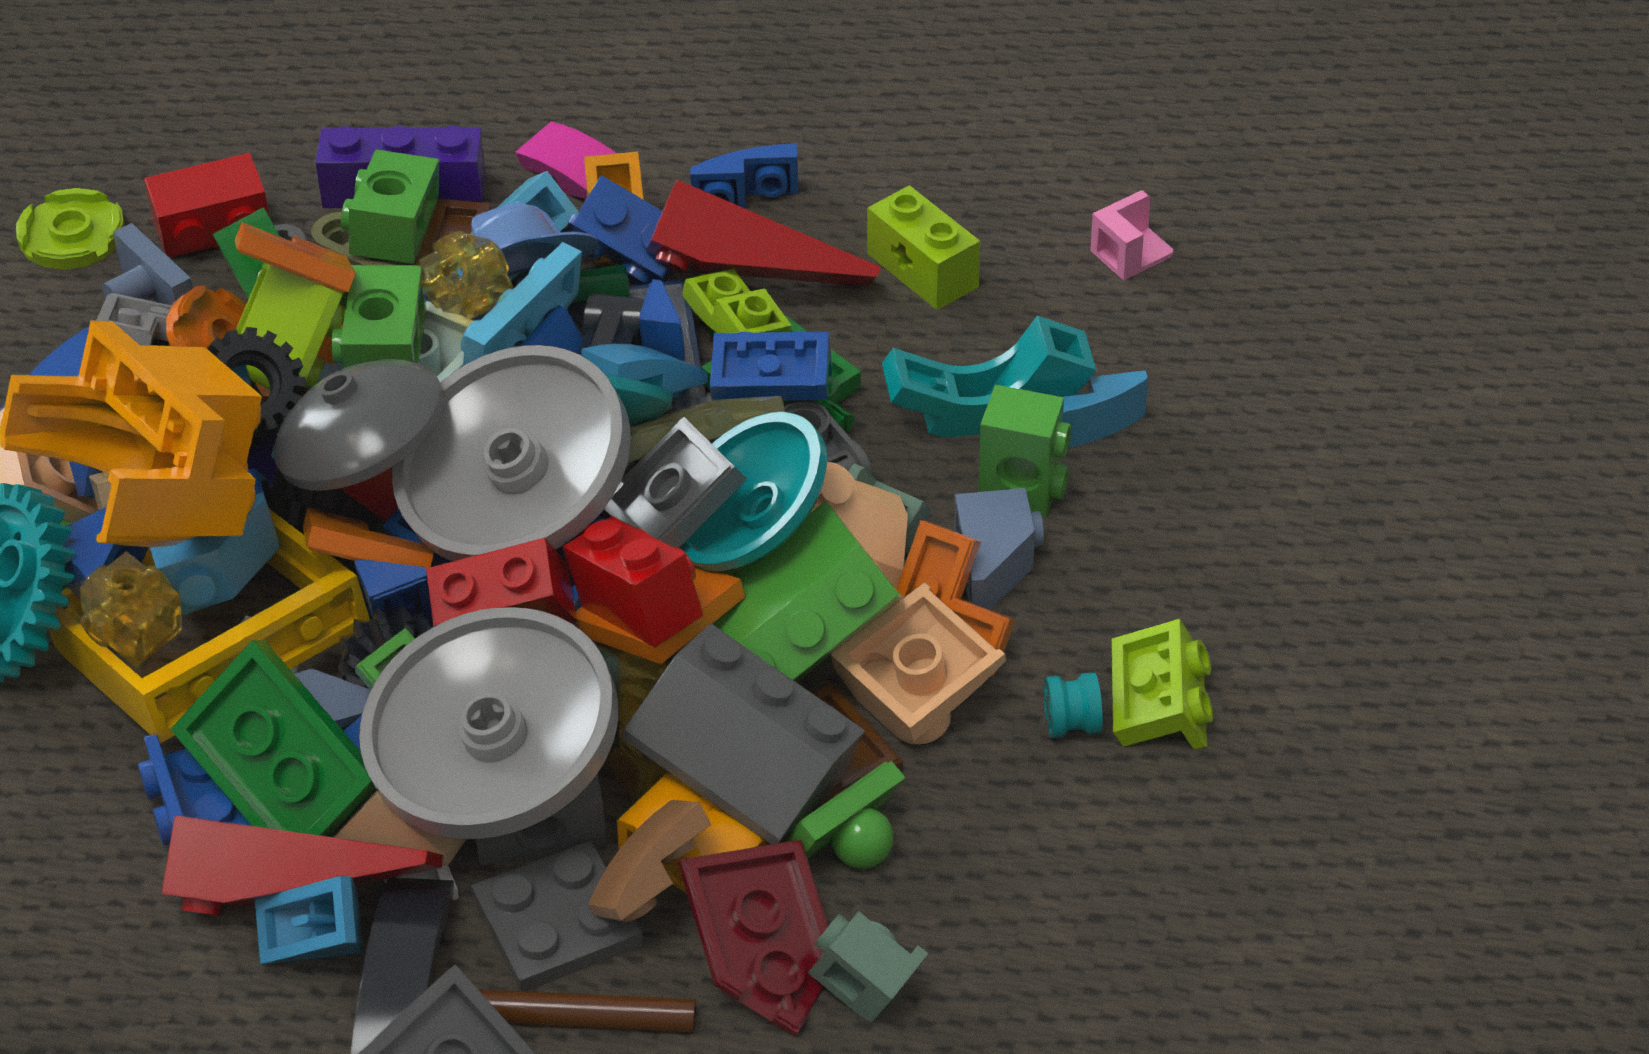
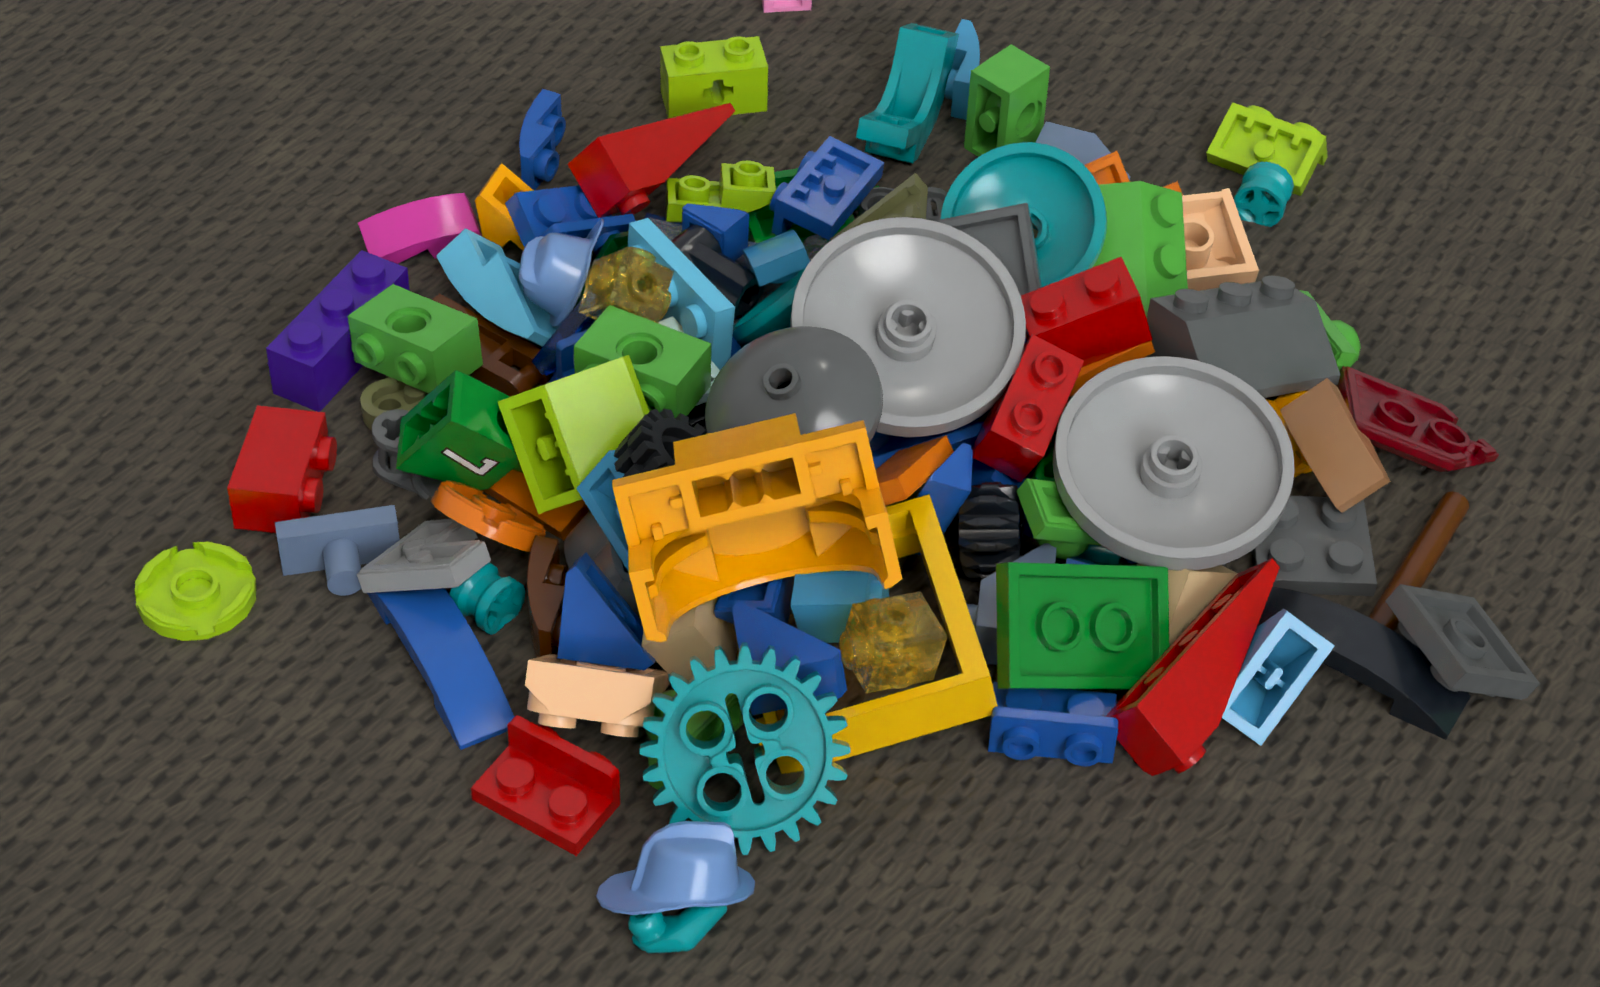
camera: 65 degrees left, 0 degrees up
(296, 257) = (558, 364): orange tile -> none
(863, 964) = (1462, 376): sand green brick -> none

